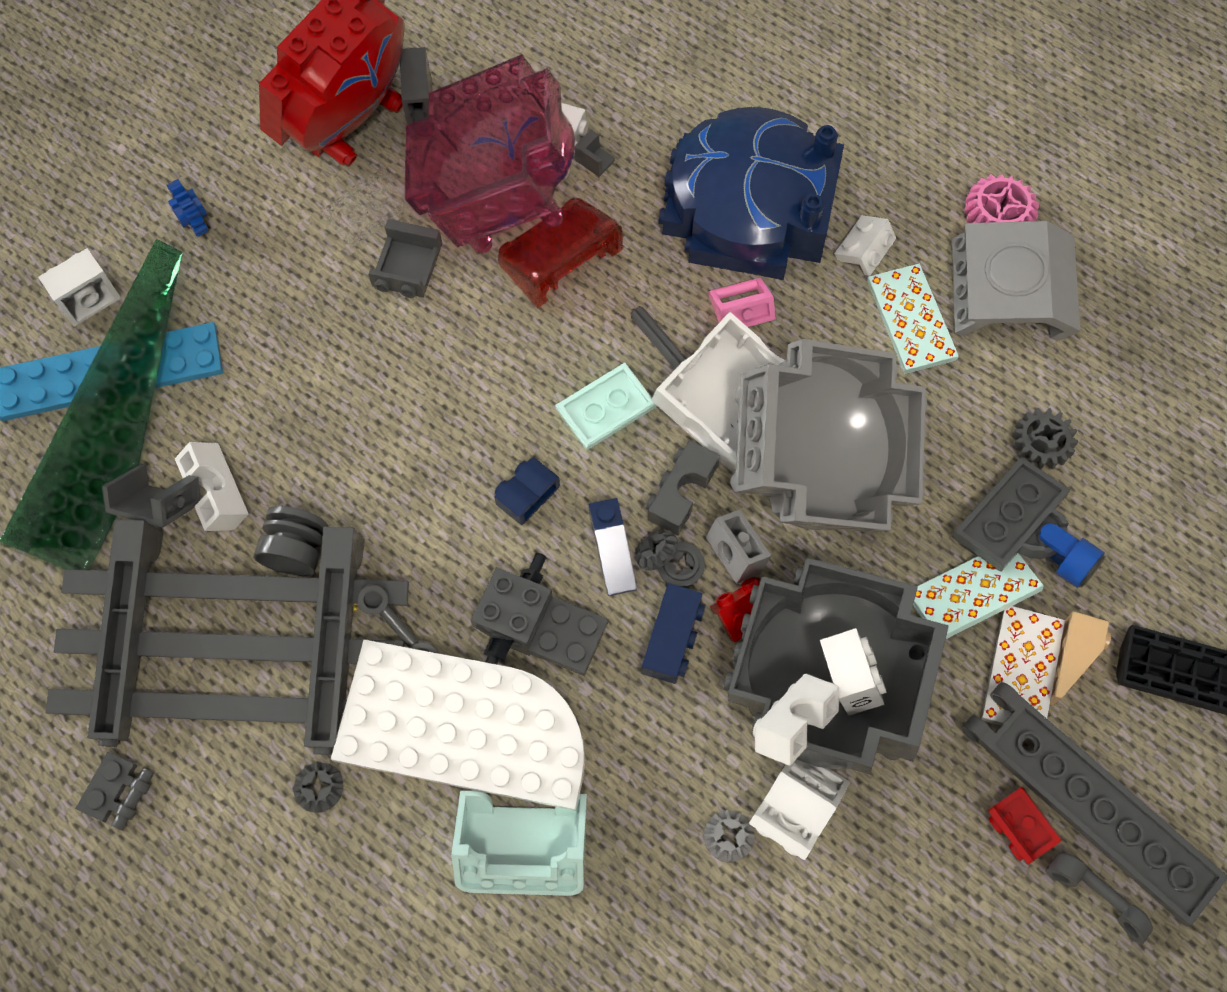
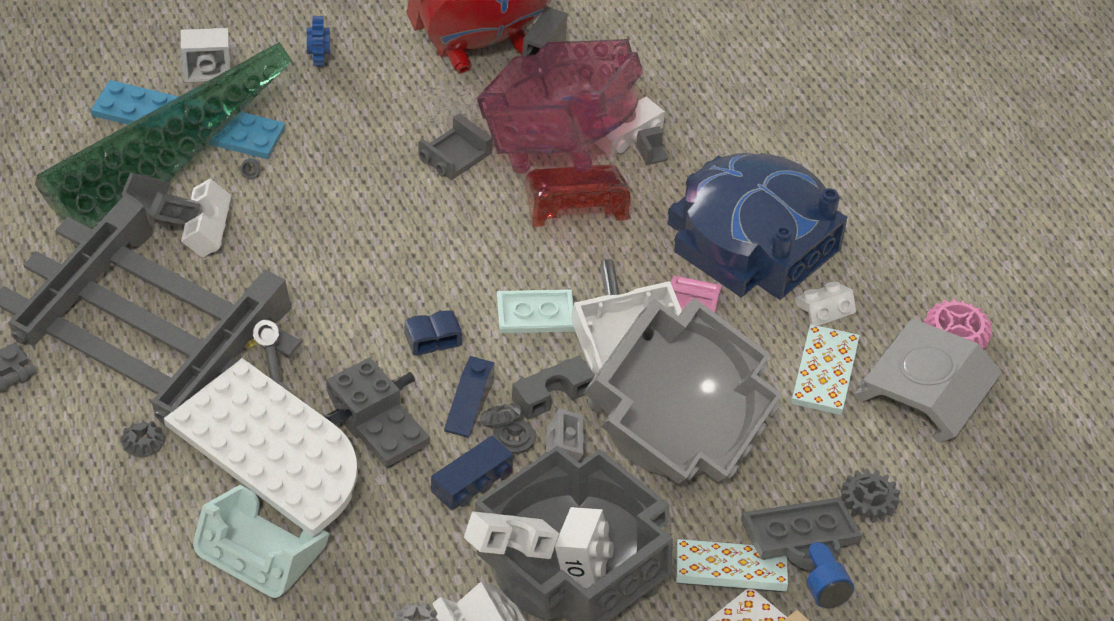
camera: 25 degrees right, 20 degrees down
(208, 397) = (245, 168): none -> dark grey hinge
(290, 541) = (233, 272): dark grey wheel -> none

